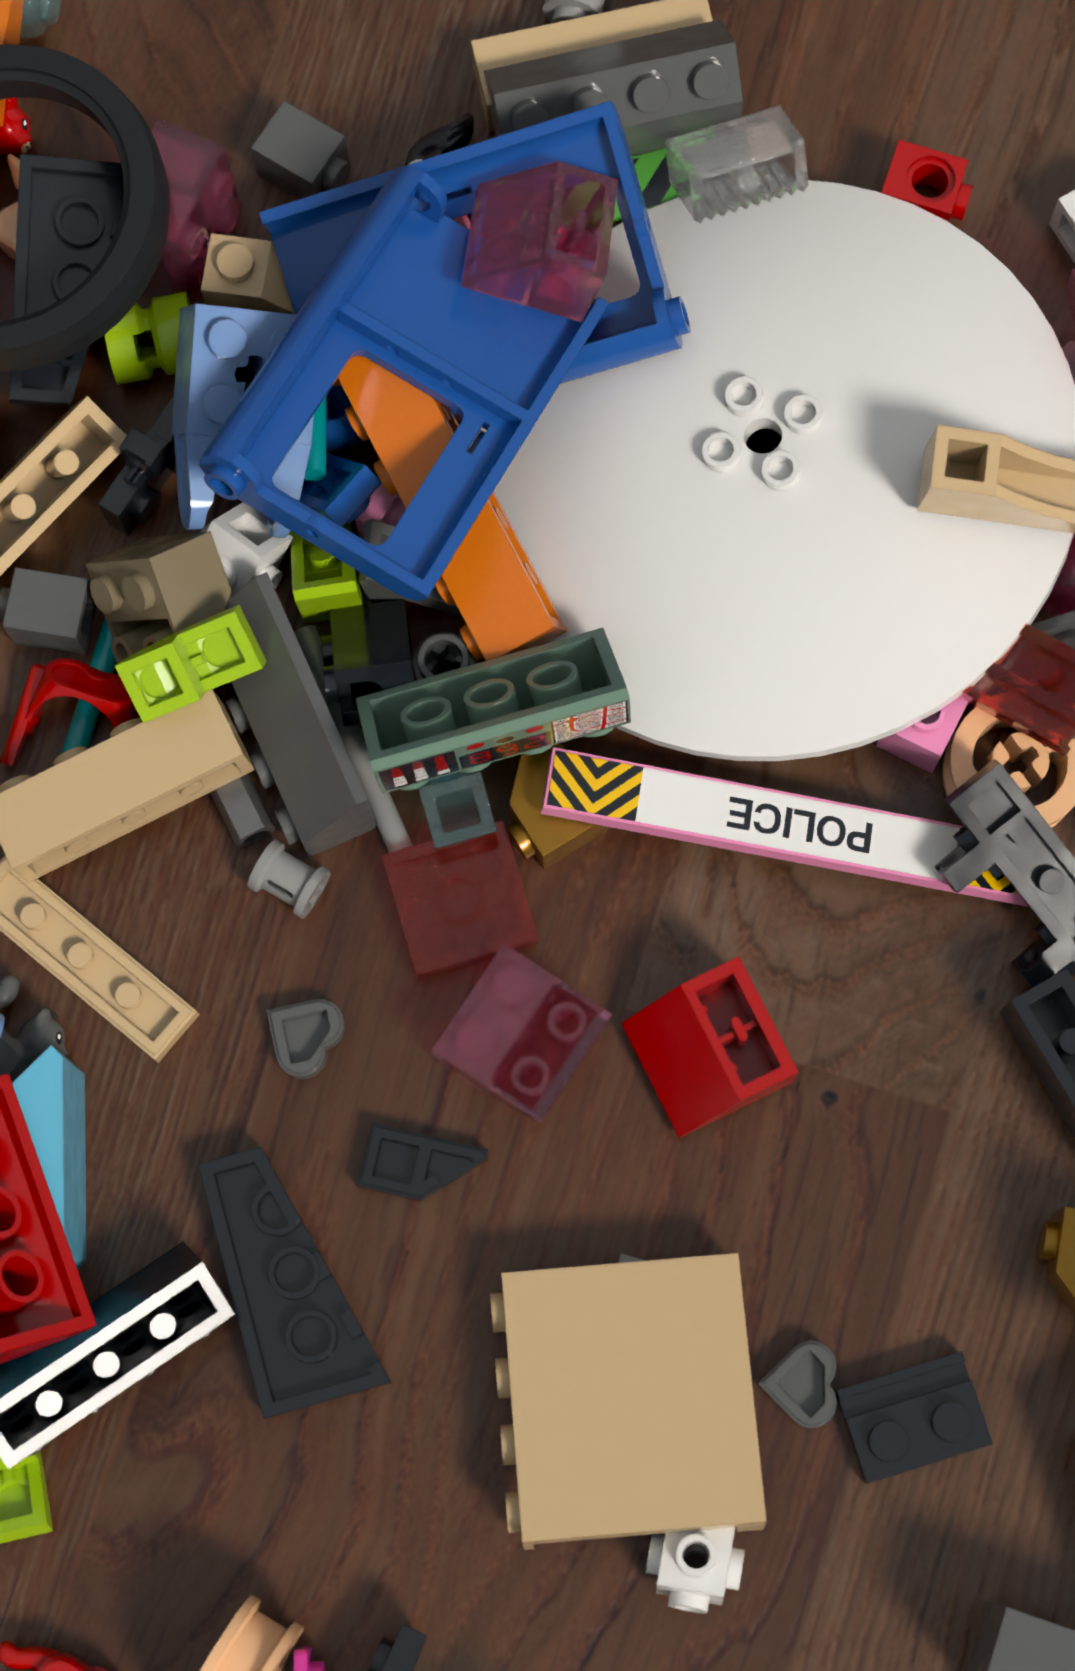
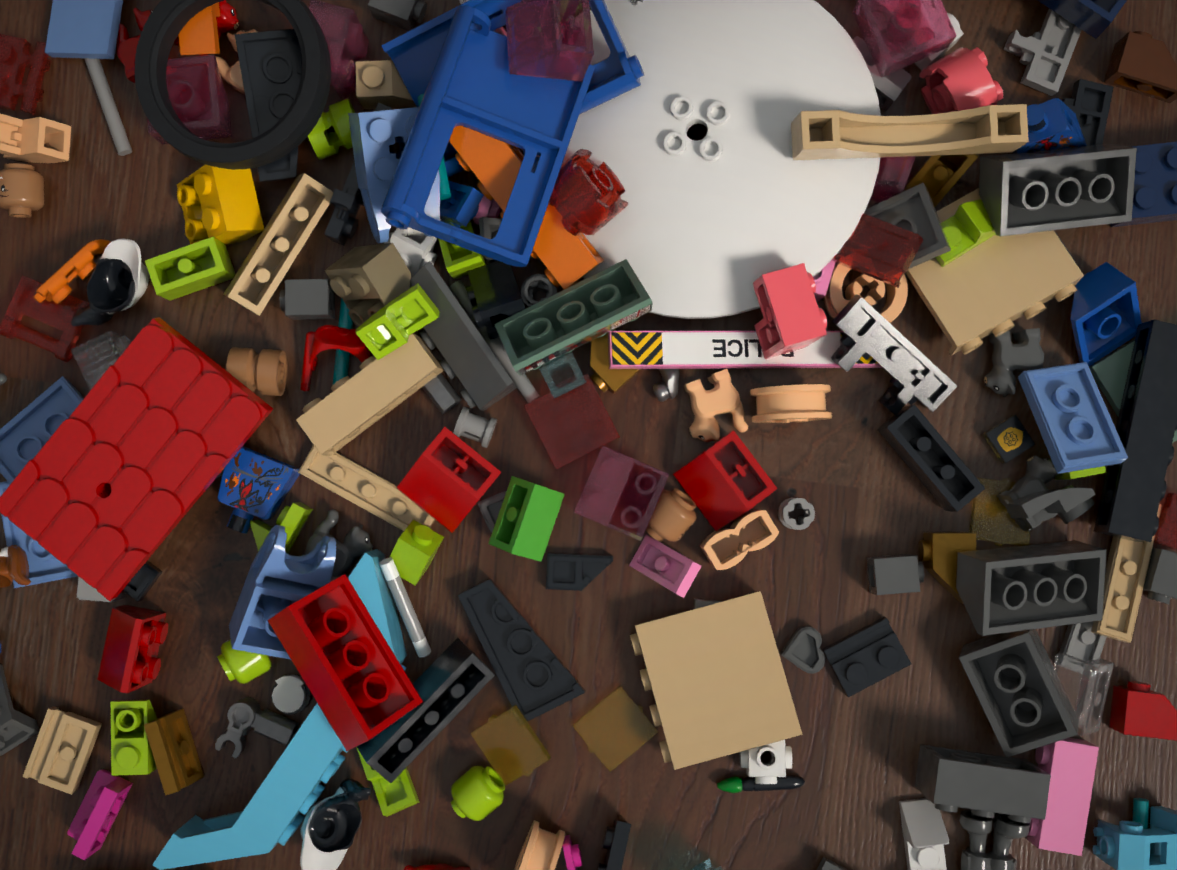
camera: 15 degrees left, 10 degrees up
(101, 1168) = (405, 607): none -> light grey bar
(137, 1073) = (415, 551): none -> lime brick
(160, 1529) = (477, 793): none -> lime head
(224, 957) = (448, 479): none -> red slope
(238, 1455) = (511, 745): none -> clear yellow piece
(347, 1050) = (526, 519): none -> bright green brick
(433, 1464) = (615, 728): none -> clear yellow piece
(554, 508) = (586, 194): none -> clear red brick
(576, 1180) = (665, 566): none -> bright pink slope
(604, 1094) = (672, 516): none -> medium nougat head
(635, 1609) = (736, 784): none -> black piece
(644, 869) = (669, 386): none -> flat silver arm
(715, 910) = (708, 403): none -> light nougat animal
(733, 1150) = (747, 533): none -> light nougat brick
(842, 1119) = (803, 521): none -> light grey bush
(849, 931) = (791, 403): none -> light nougat wheel
(868, 763) = (788, 311): none -> coral brick
(988, 1272) = (894, 574): none -> dark grey brick

